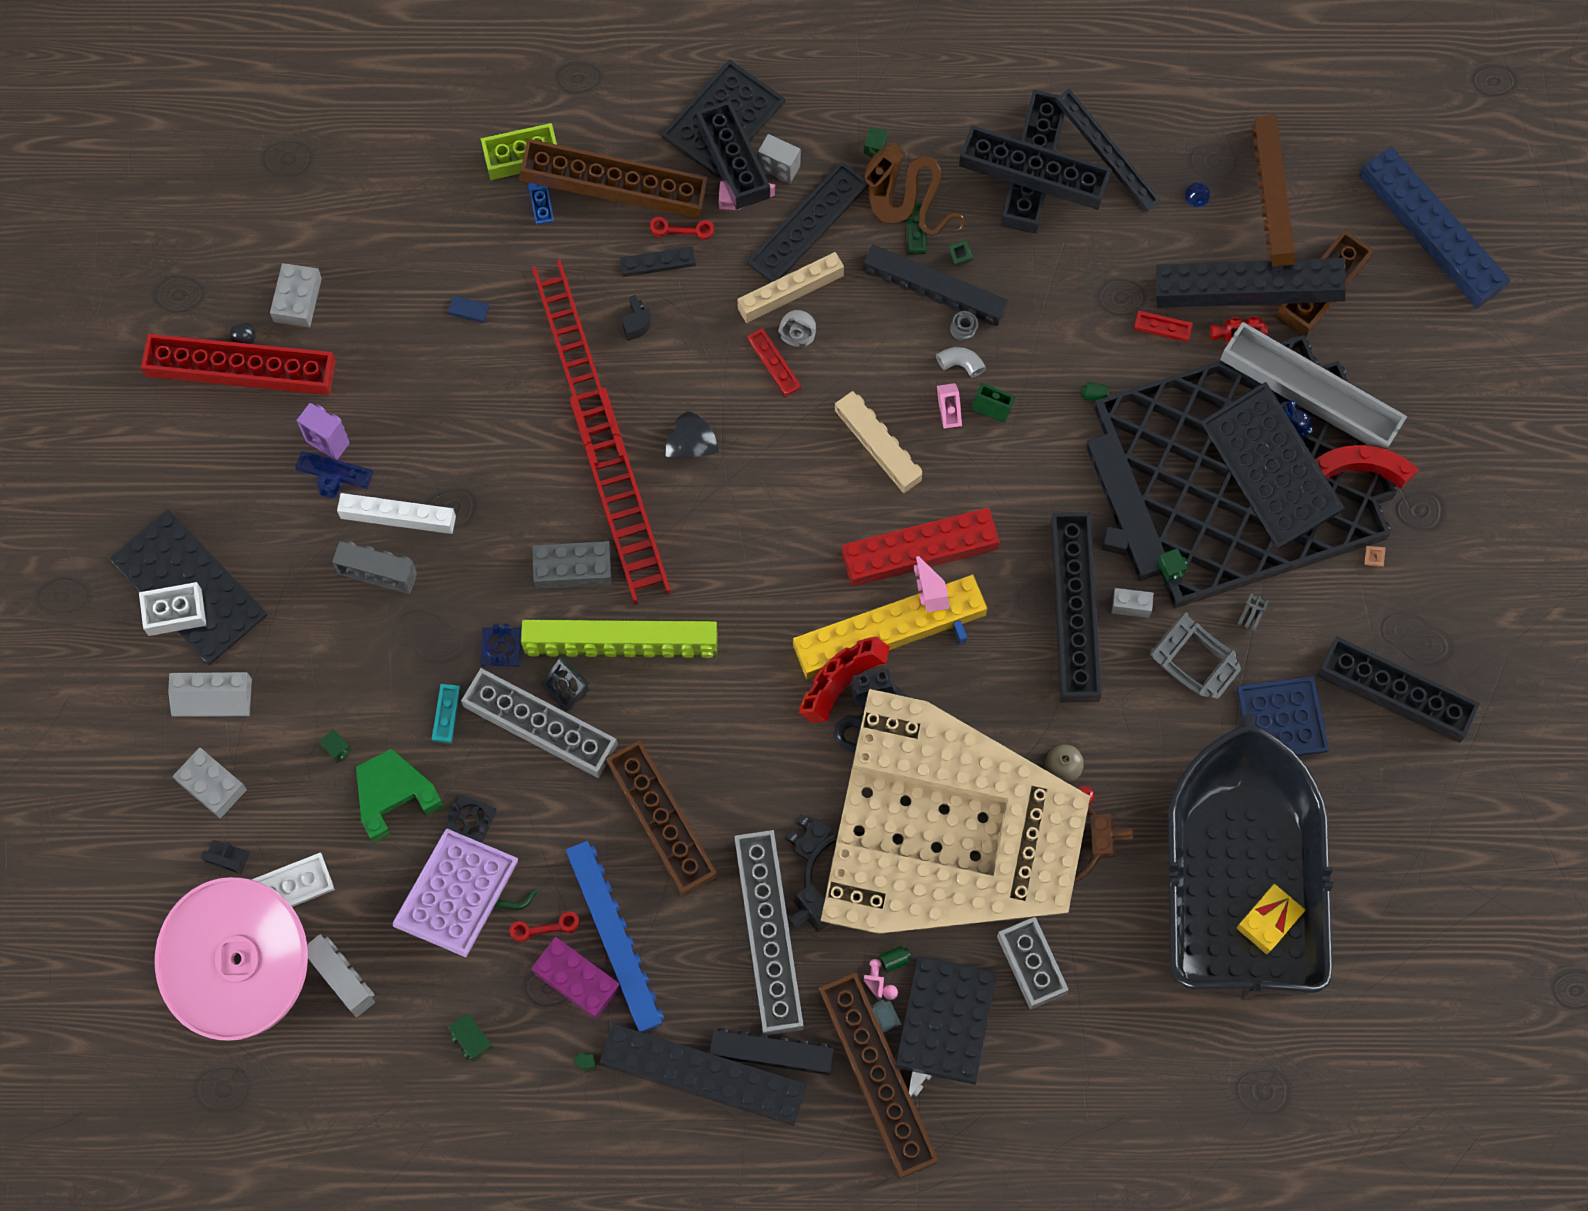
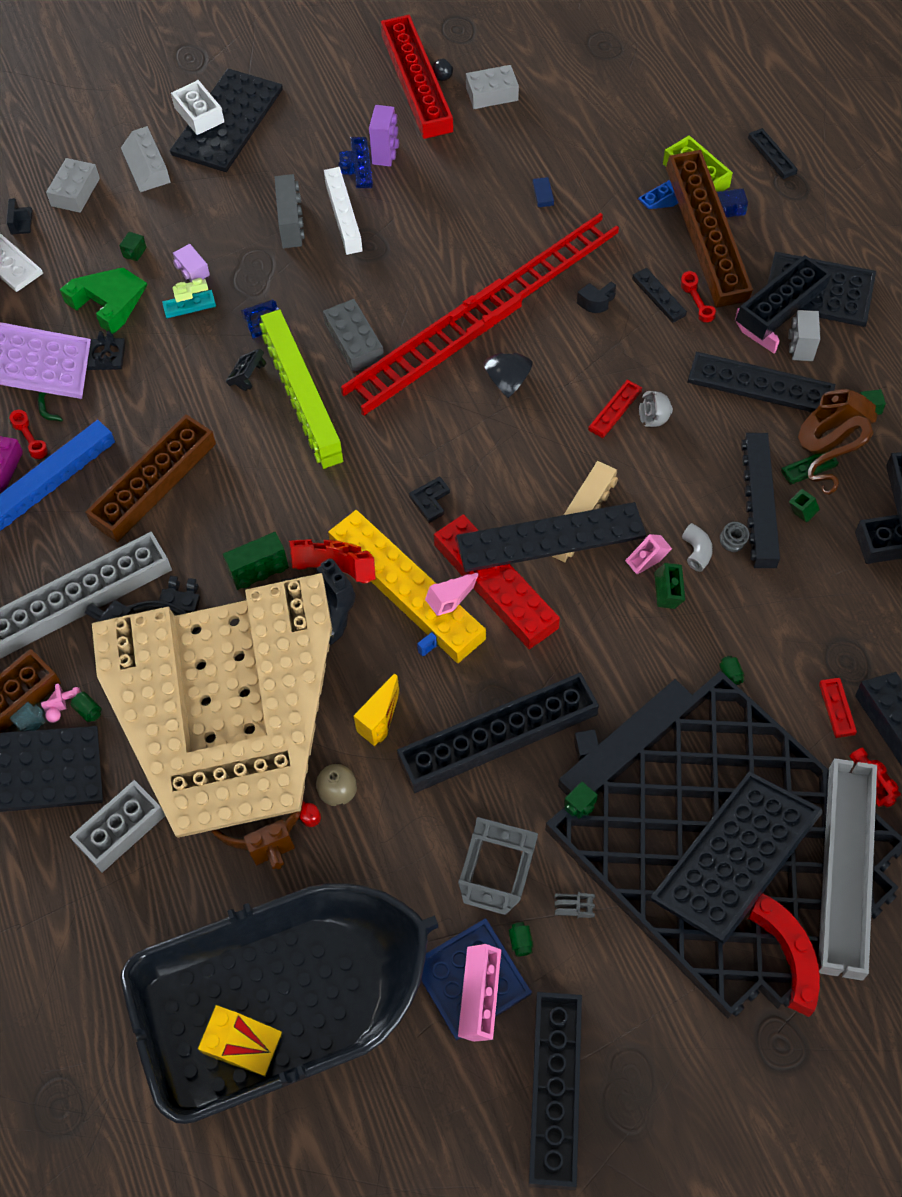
camera: 70 degrees right, 10 degrees down
(392, 693) = (190, 263): none -> lavender brick
(426, 708) = (184, 291): none -> yellowish green plate
(532, 73) = (772, 153): none -> black plate
(539, 722) = (203, 362): light grey brick -> none
(581, 137) = (733, 202): none -> clear blue brick
(790, 287) = (691, 391): tan brick -> none
(799, 573) = (426, 498): none -> black plate
(809, 750) = (256, 560): none -> dark green brick
(903, 479) = (550, 537): none -> black plate
(1016, 697) = (376, 714): none -> yellow slope
(1132, 603) = (528, 783): light grey brick -> none
(1265, 666) = (521, 939): none -> dark green brick
(1298, 418) = (803, 861): clear blue animal -> none
(1304, 713) = (479, 993): none -> bright pink brick
(1375, 556) = (700, 1011): nougat tile -> none

